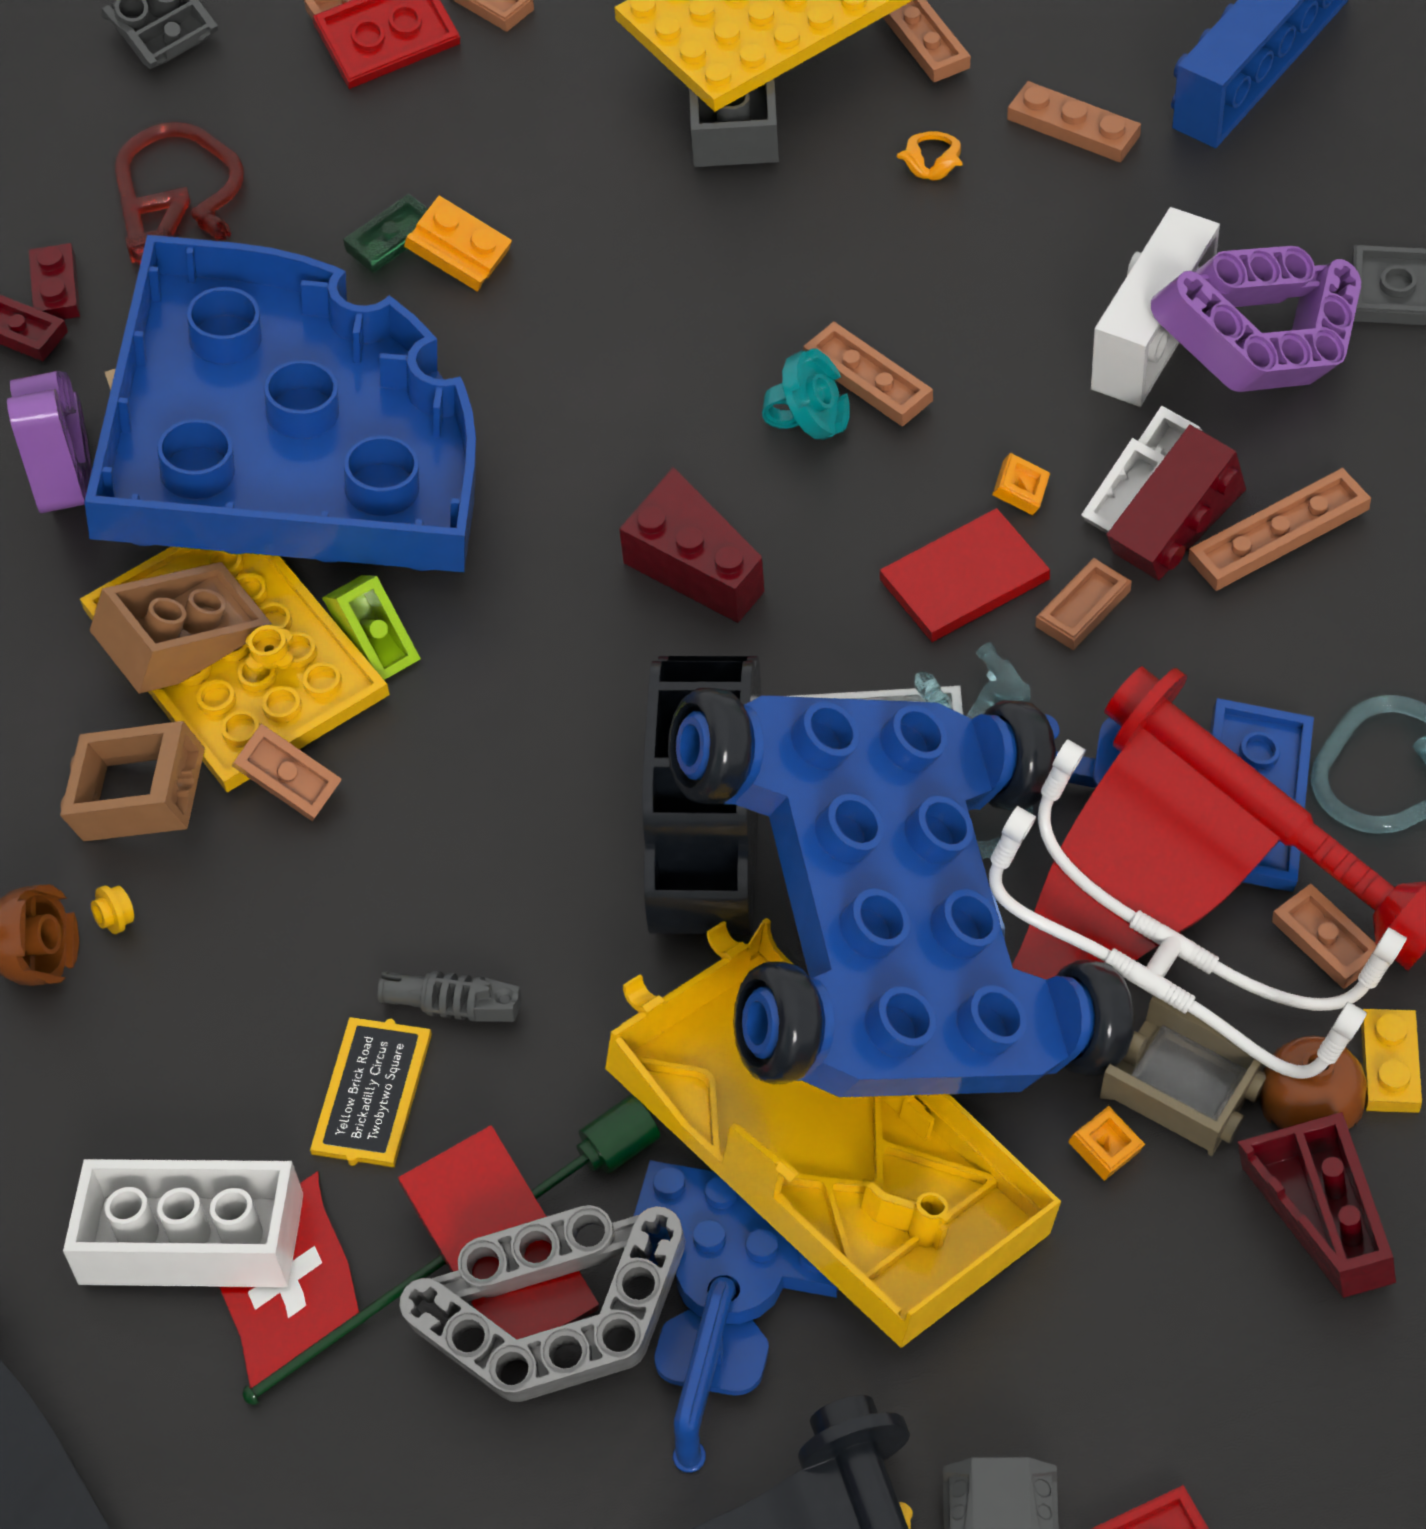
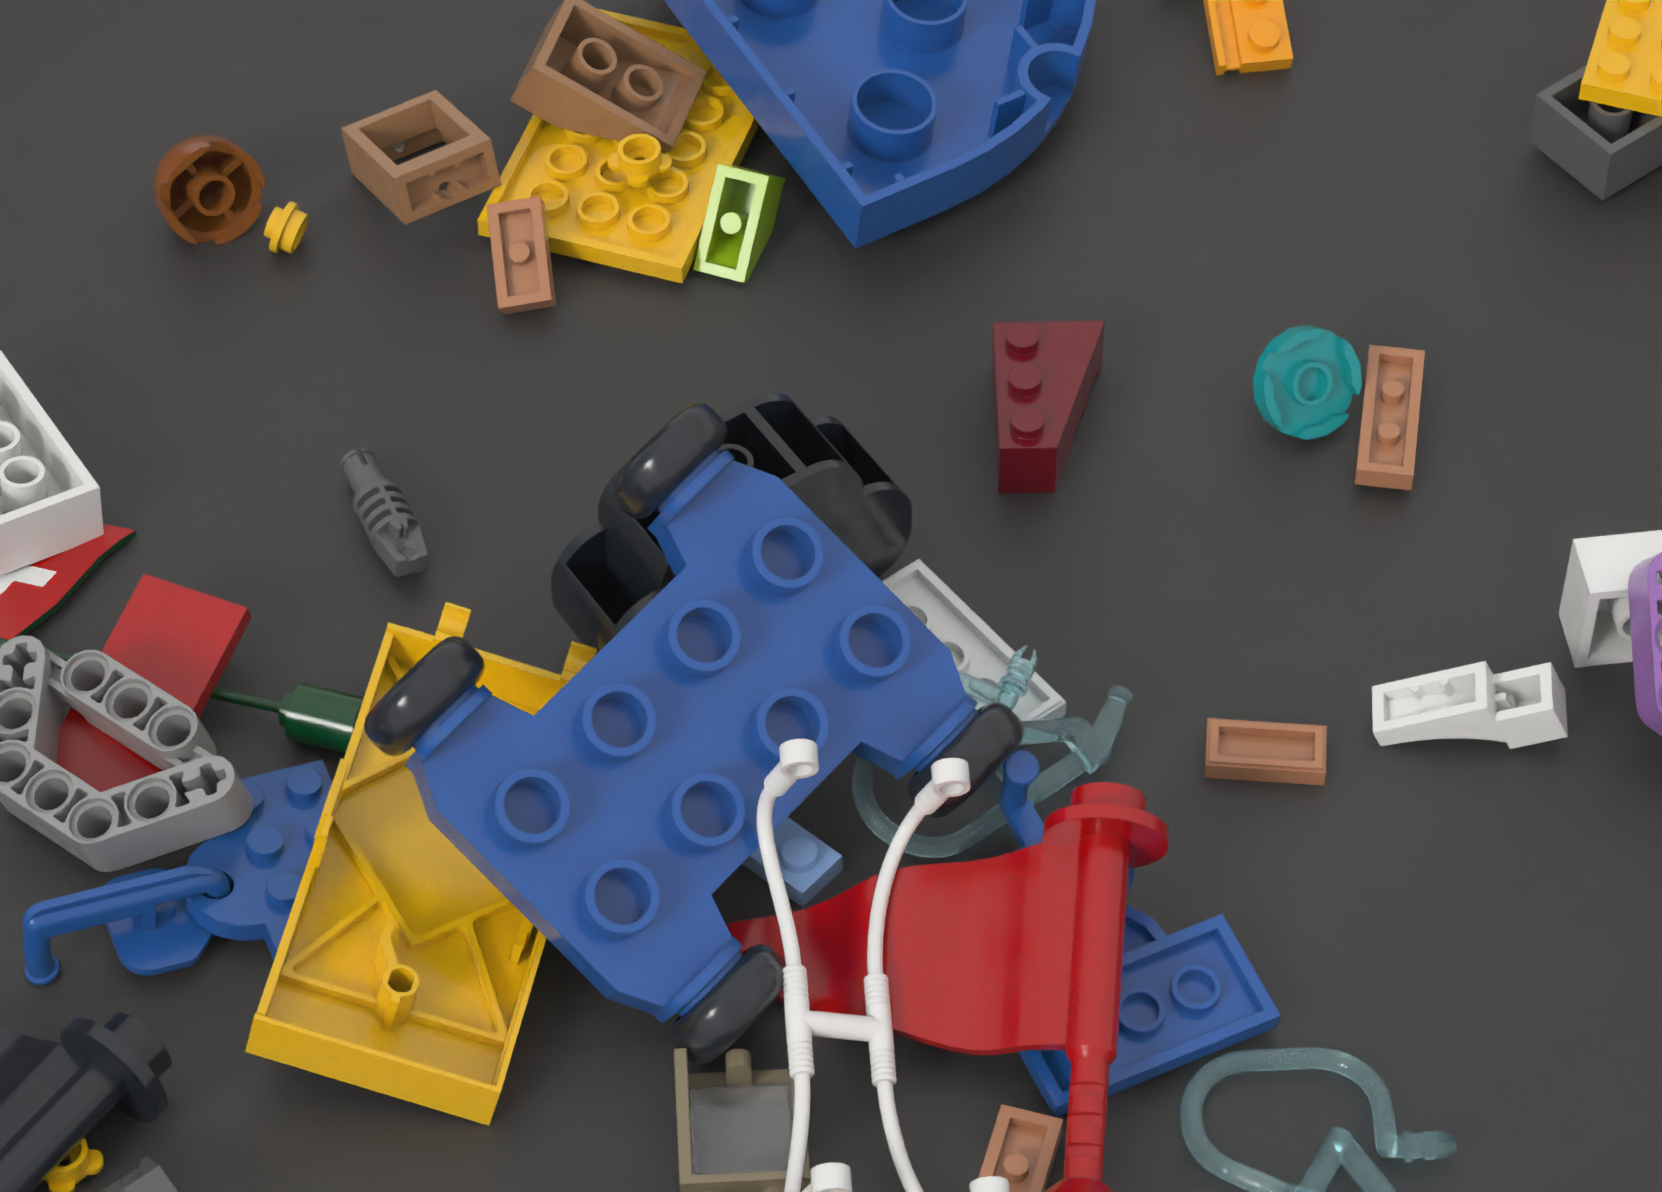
camera: 50 degrees right, 5 degrees down
(371, 1092) = (248, 522): piece -> none
(964, 574) = (1212, 634): red tile -> none
(1021, 483) = (1366, 615): light orange tile -> none
(1106, 1143) = (617, 1110): light orange tile -> none
(1178, 503) = (1450, 753): dark red wedge -> none
(1279, 529) = (1510, 864): nougat plate -> none

